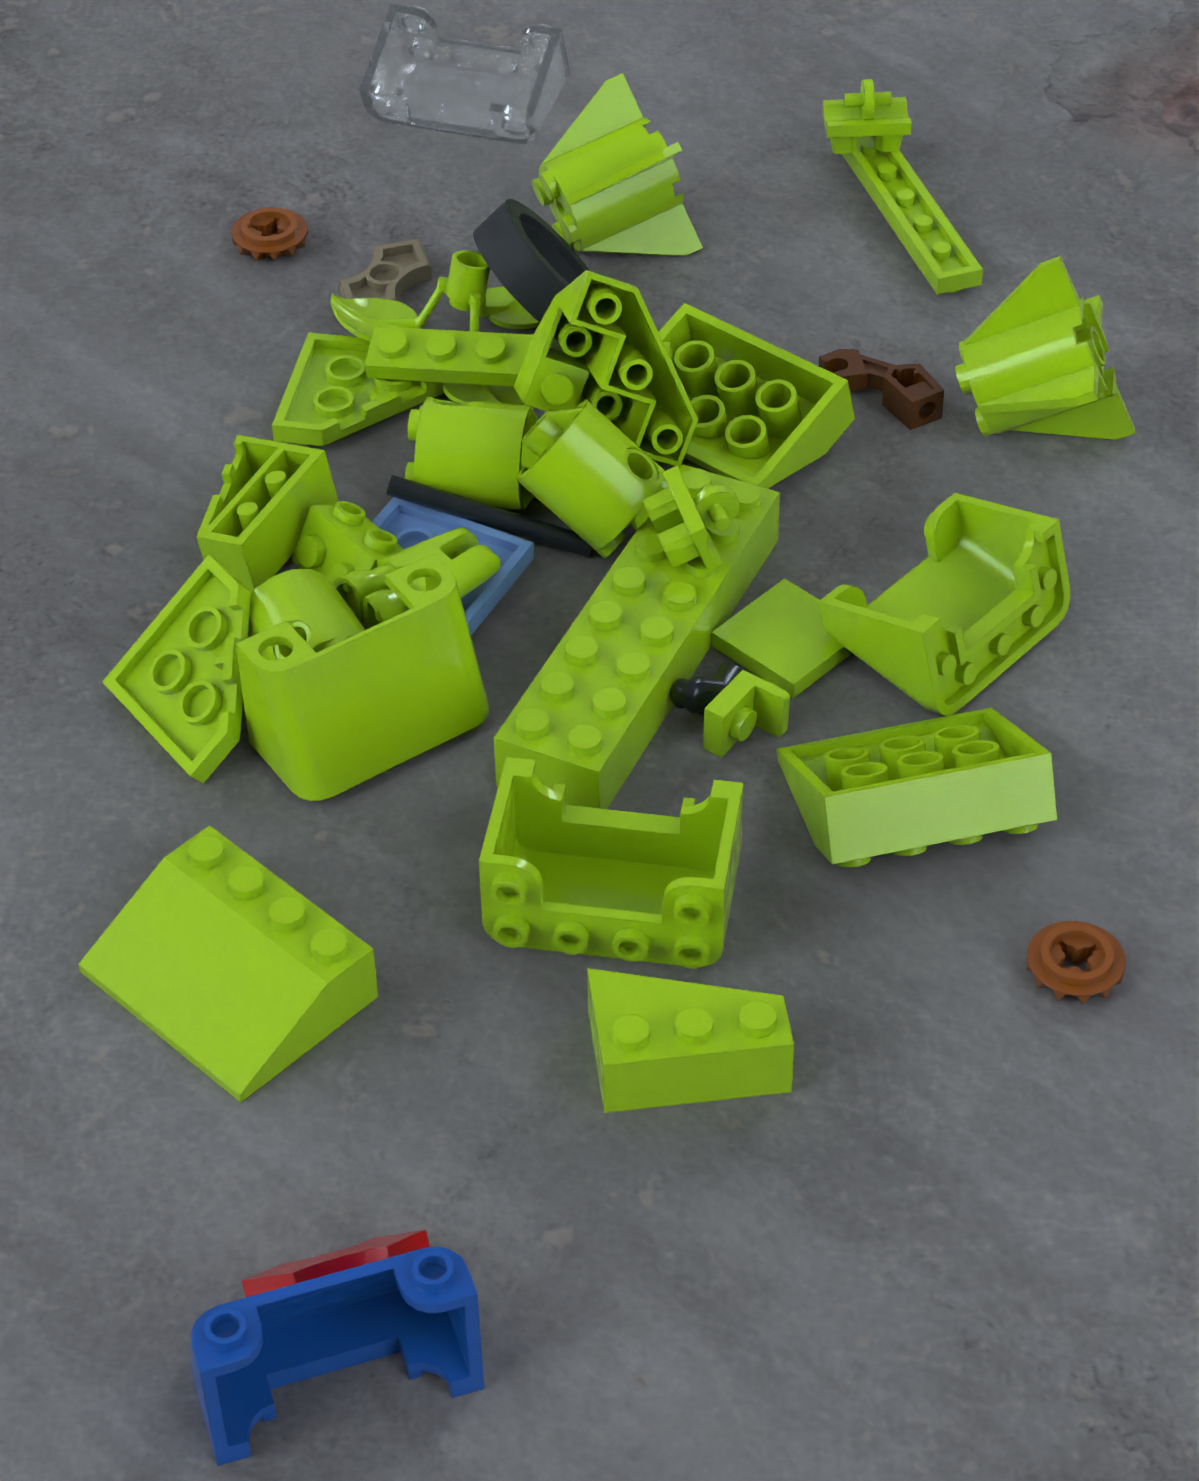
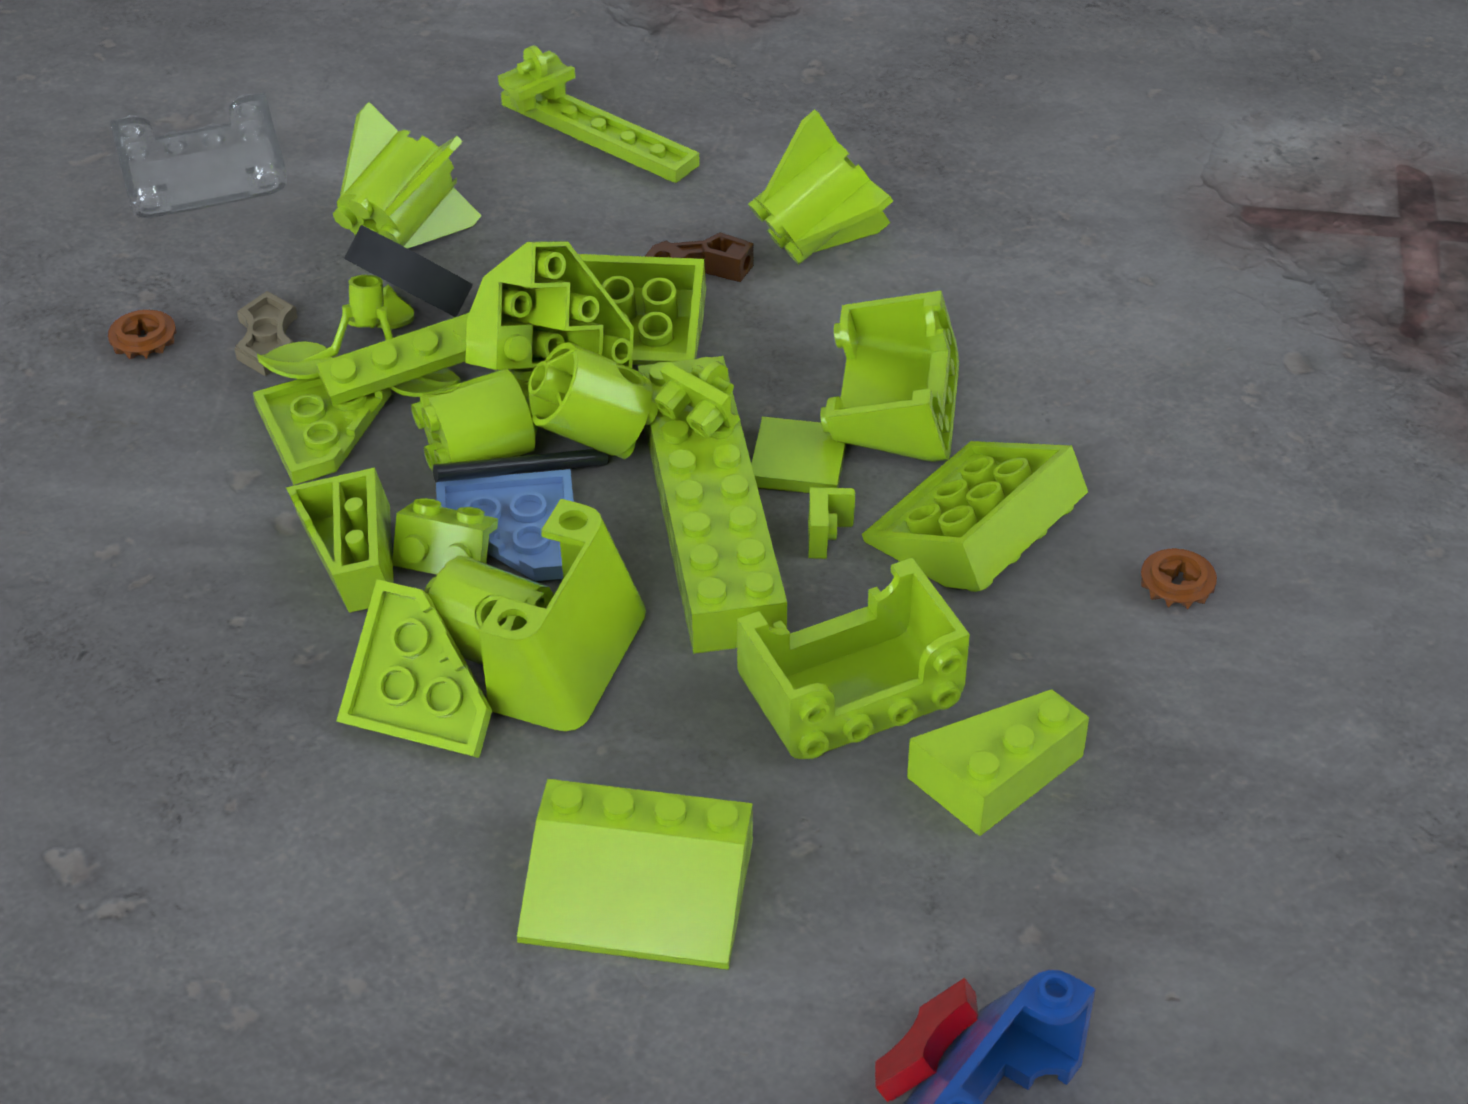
camera: 35 degrees left, 0 degrees up
(457, 549) = (518, 533): lime piece -> none
(700, 691) = (787, 514): black arm -> none

